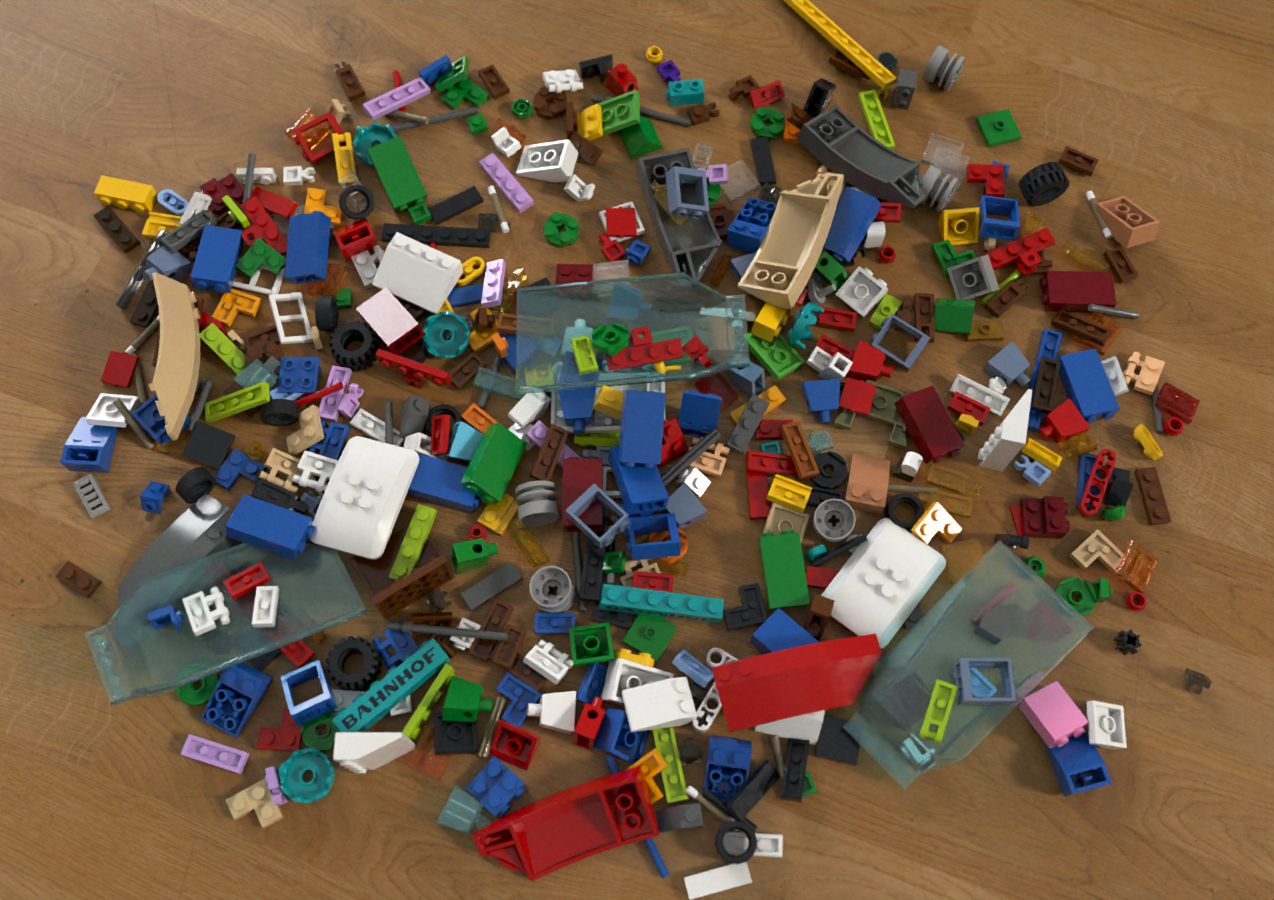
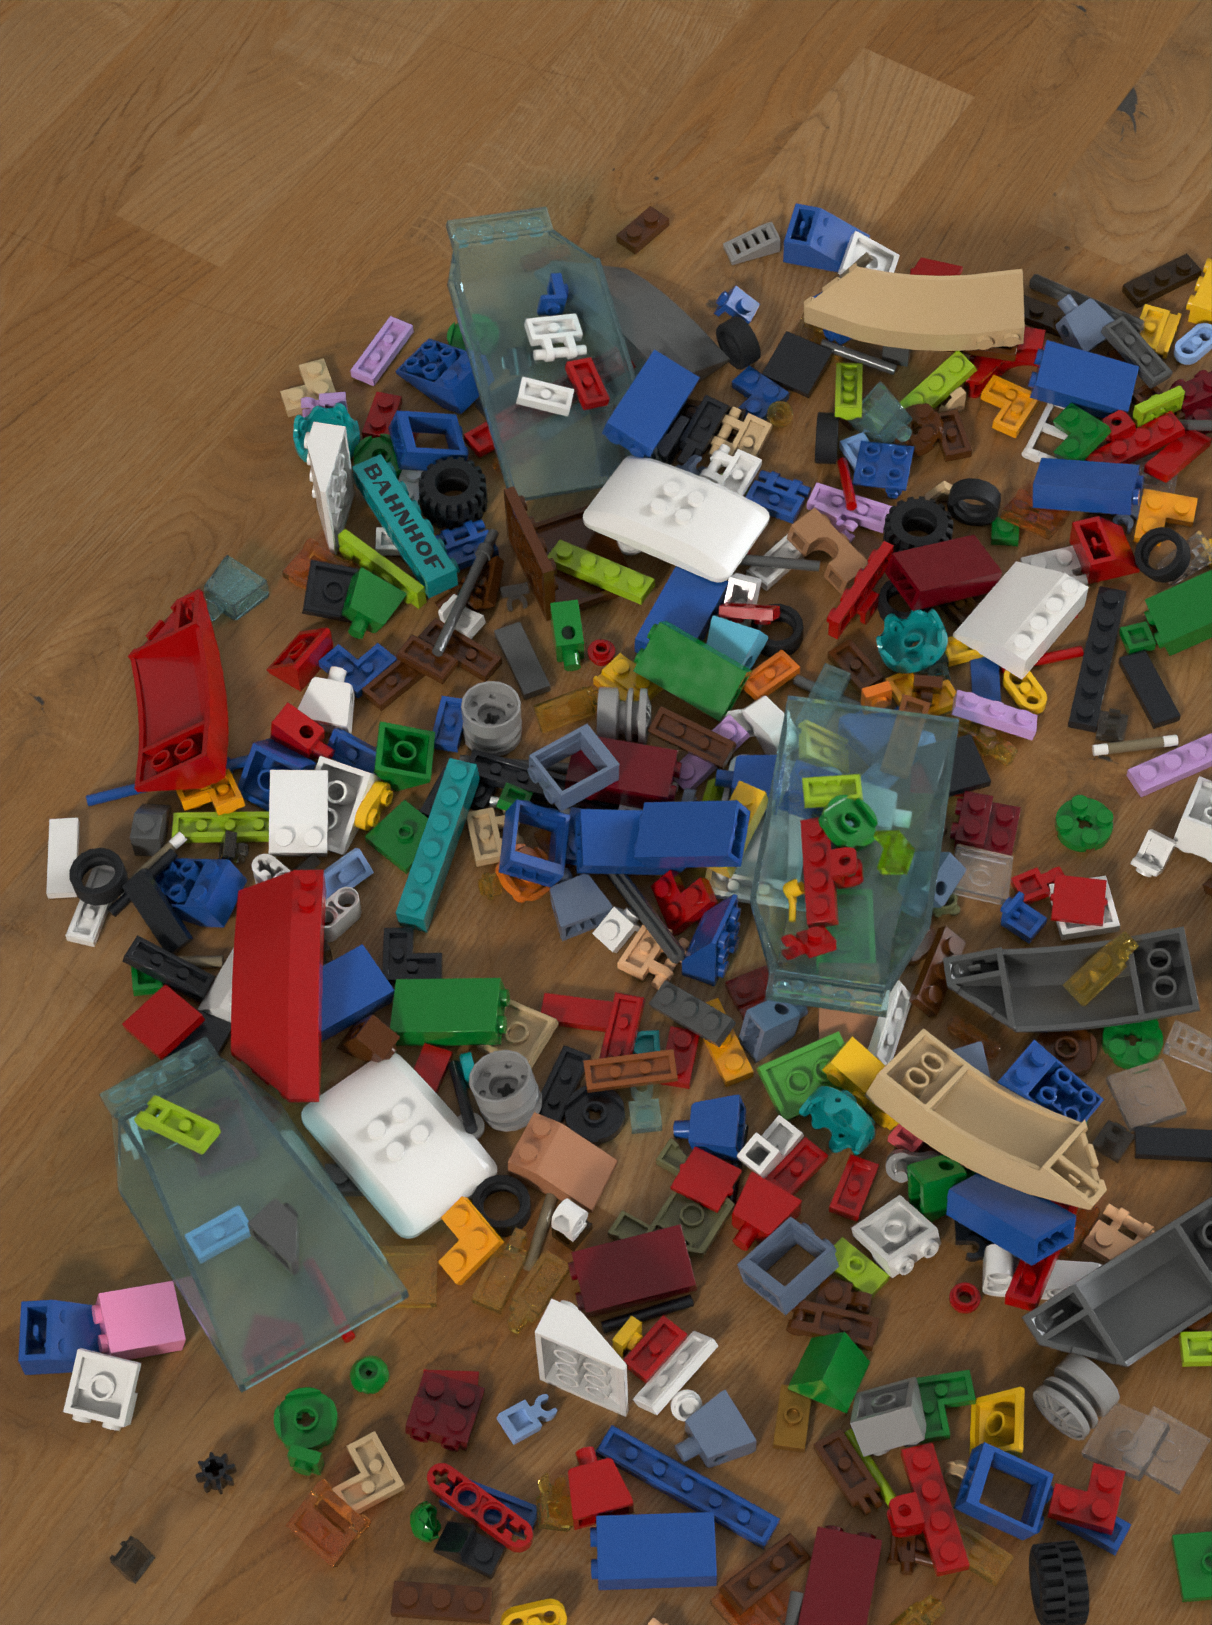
camera: 105 degrees right, 10 degrees down
(197, 204) = (1178, 360): white plate -> none
(288, 318) = (976, 447): white window -> none
(310, 431) = (789, 470): tan plate -> none
(385, 386) = (817, 533): none -> medium nougat arch
(413, 415) = (788, 591): dark grey slope -> none
(491, 727) = (350, 643): dark tan axle -> none
(496, 787) = (253, 632): blue plate -> none
(548, 661) = (393, 697): white plate -> none
(626, 311) = (896, 852): none -> clear neon green panel
(653, 581) = (470, 839): red plate -> none
(691, 176) = (1071, 972): sand blue window -> none
(716, 174) = (1150, 1048): lavender plate -> none
(789, 493) = (565, 1044): yellow plate -> none
(835, 762) = (163, 1022): none -> red tile
(963, 681) = (204, 1164): sand blue window -> none
(1013, 541) = (411, 1328): black plate -> none
(1042, 454) = (550, 1440): yellow tile -> none
(1045, 385) = (666, 1475): dark brown plate -> none
(1115, 375) = (664, 1601): white plate -> none
(1139, 597) = (271, 1505): red plate -> none

